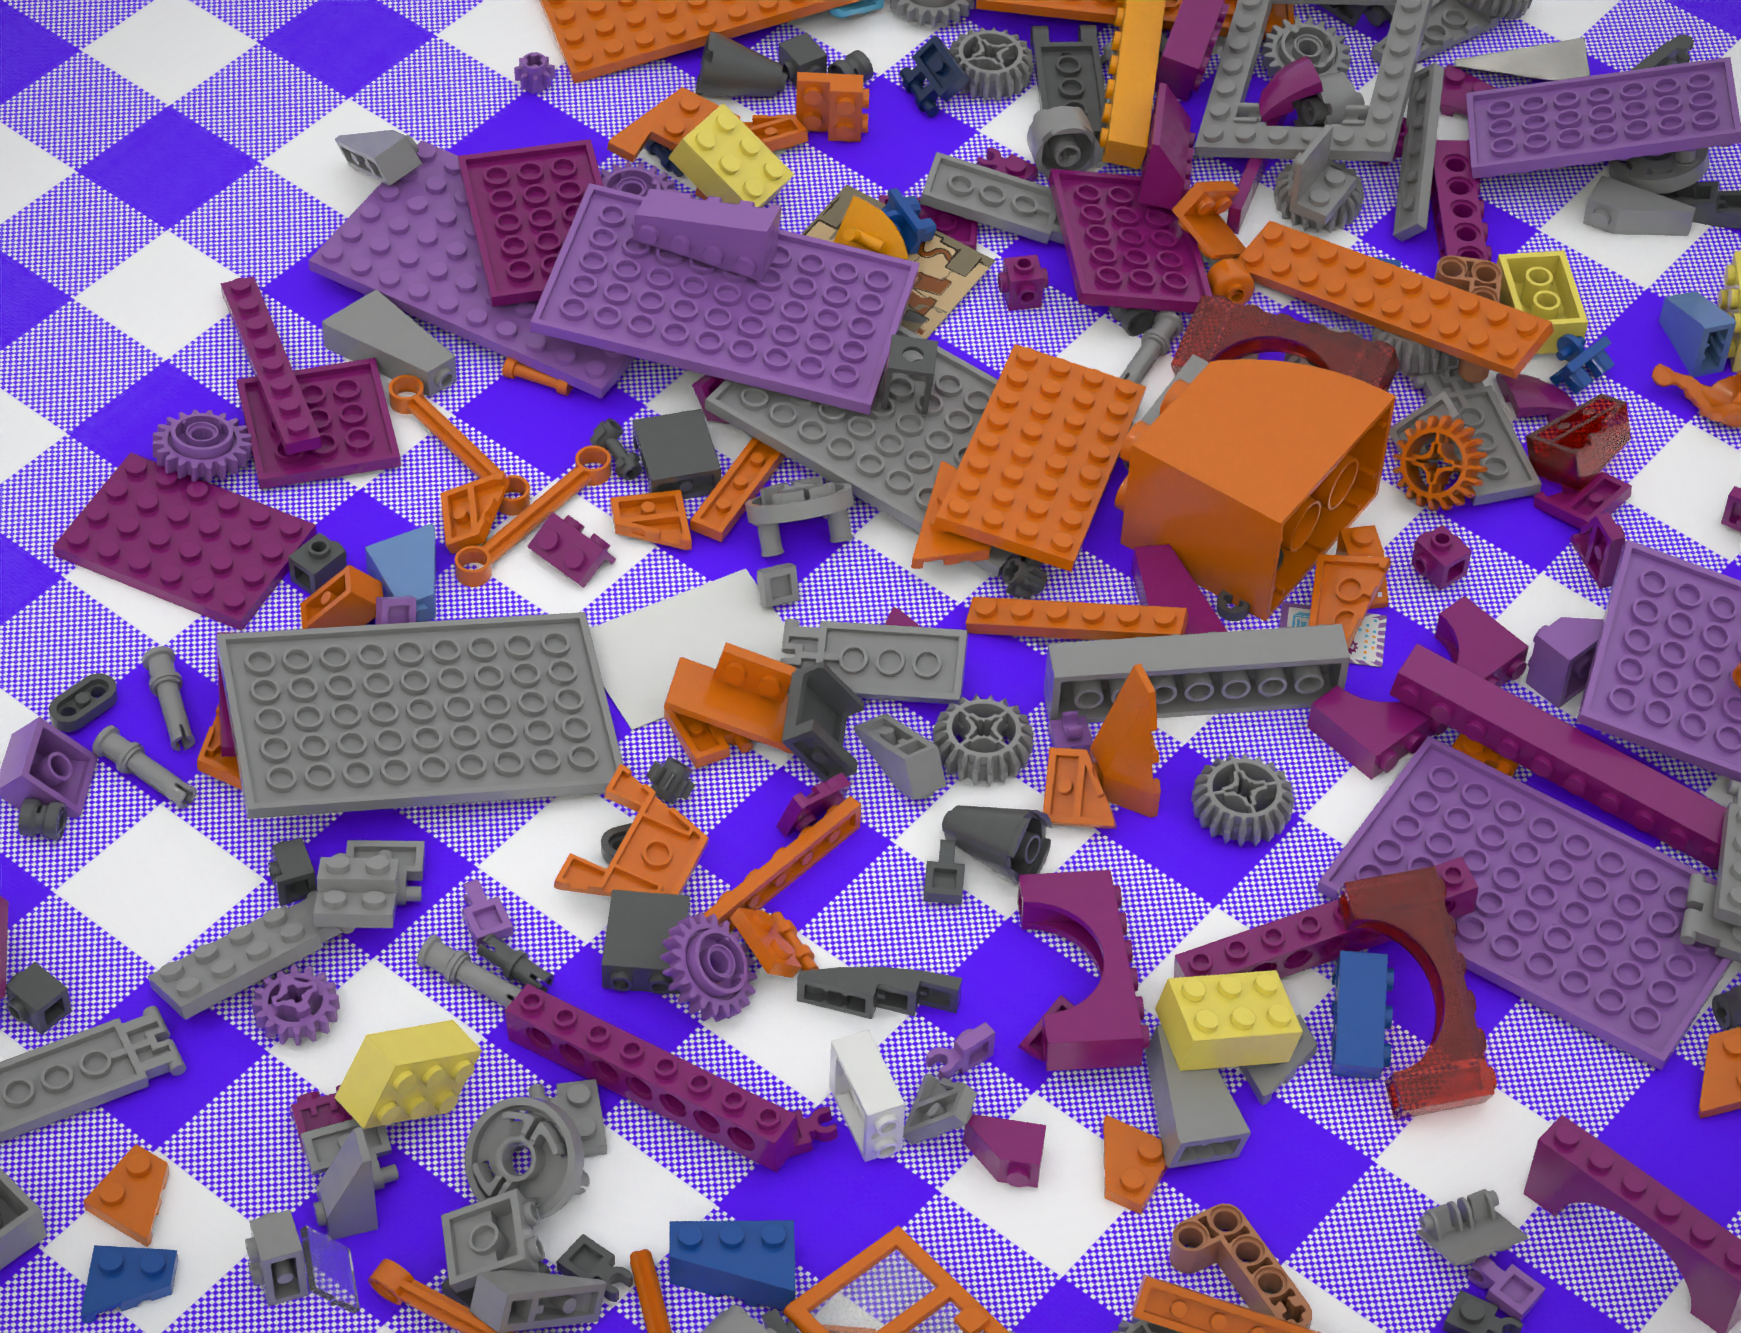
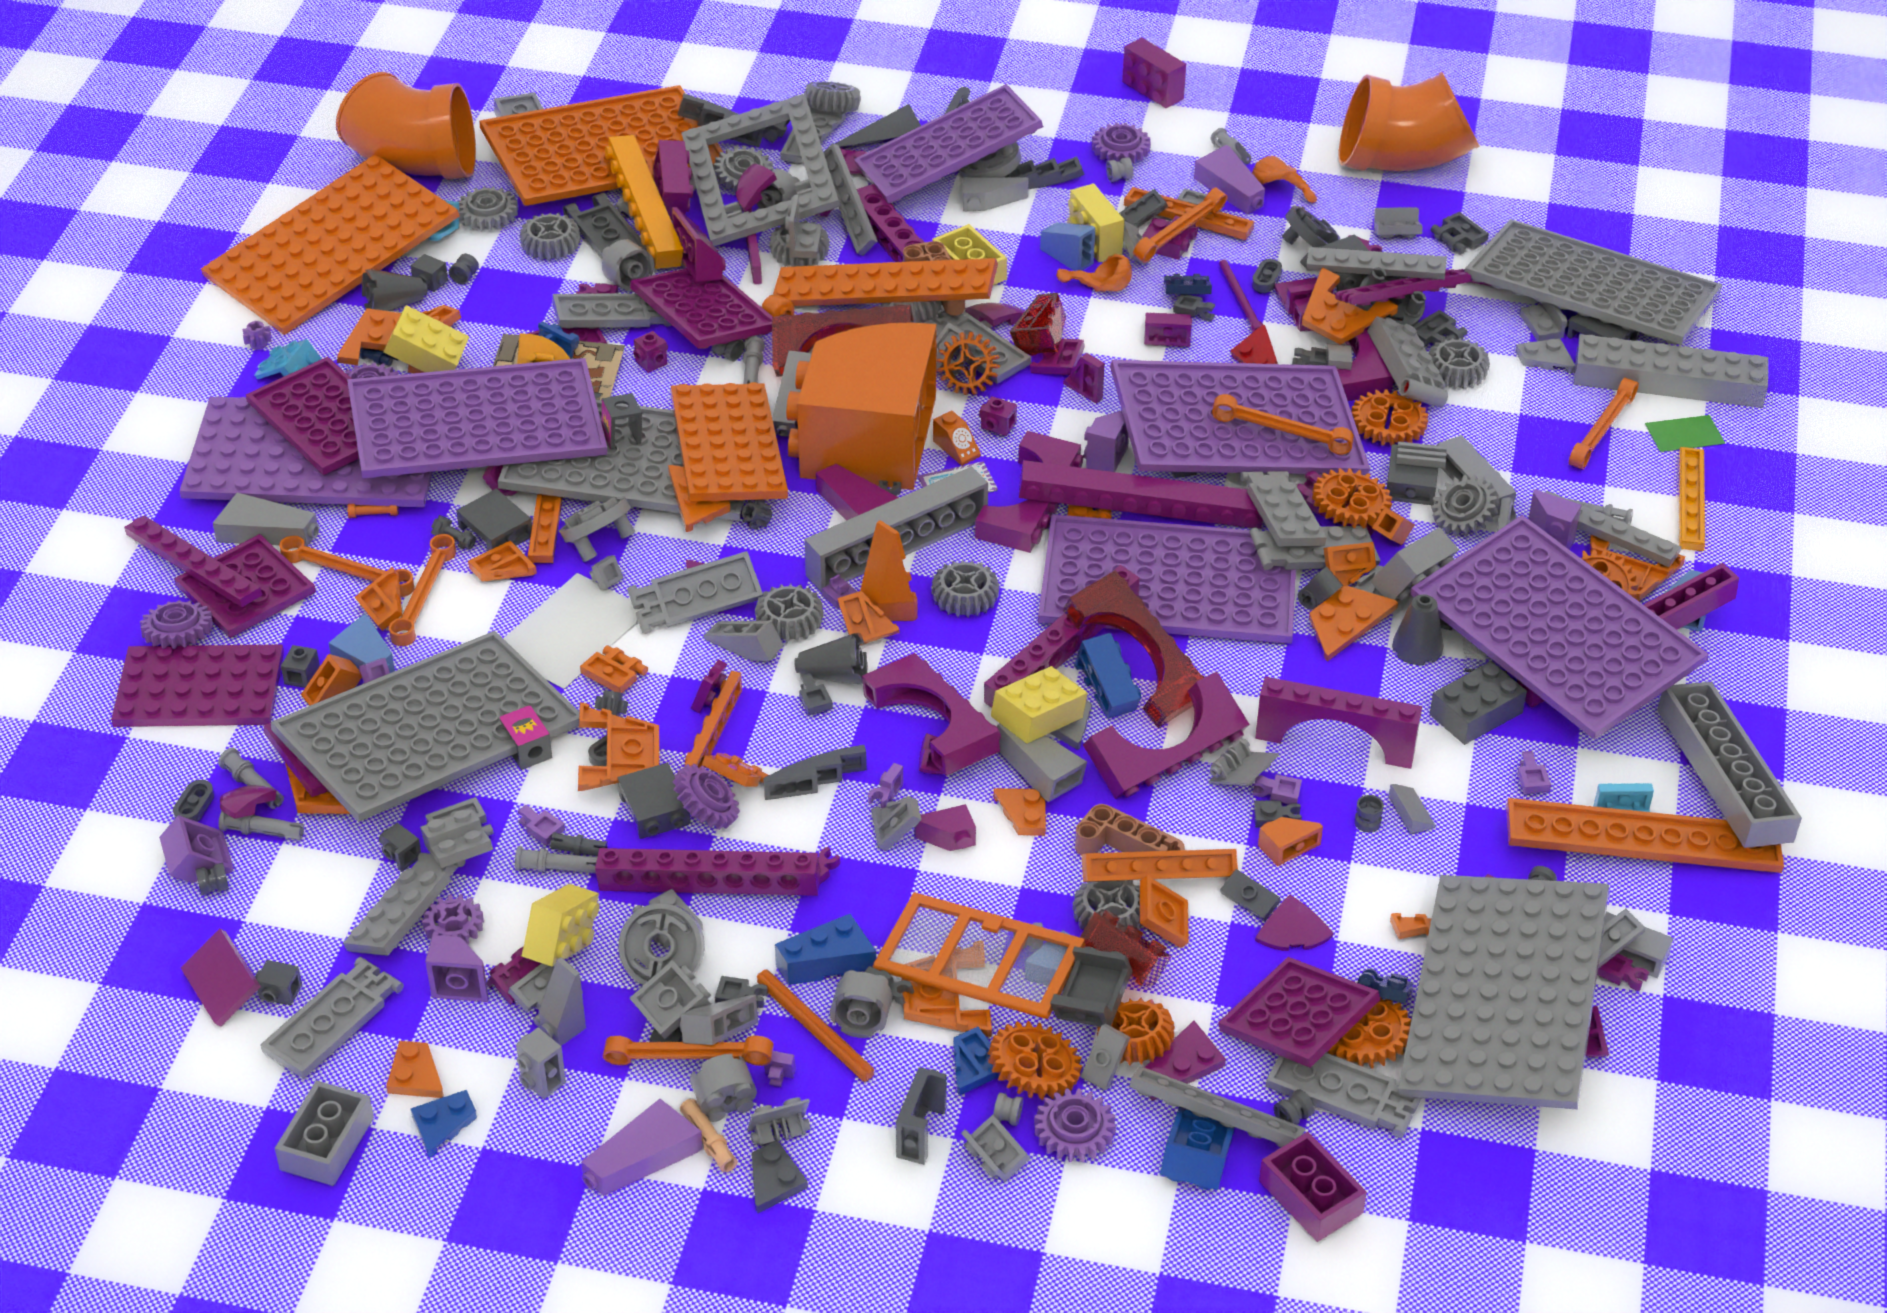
camera: 25 degrees left, 5 degrees down
(134, 723) = (243, 800): none -> magenta brick
(246, 1076) = (455, 970): none -> medium lavender slope
(329, 1269) = (578, 1060): clear piece -> none
(380, 154) = (188, 413): light grey slope -> none
(534, 782) = (529, 736): none -> piece
(553, 123) = (288, 359): none -> medium azure bracket
(569, 549) = (460, 599): magenta bracket -> none
(710, 231) = (447, 378): medium lavender wedge -> none
(739, 695) = (630, 637): orange bracket -> none
(817, 721) = (680, 629): dark grey panel -> none
(833, 104) = (468, 288): orange plate -> none
(866, 1095) = (837, 809): white window -> none
(941, 70) = (523, 247): dark blue plate -> none
(1072, 619) = (802, 526): orange plate -> none
(1200, 217) = (736, 276): orange bracket -> none
(1308, 1165) = (1131, 766): none -> magenta arch
(1345, 590) = (954, 449): orange wing -> none
(1572, 350) = (1013, 284): blue hips -> none

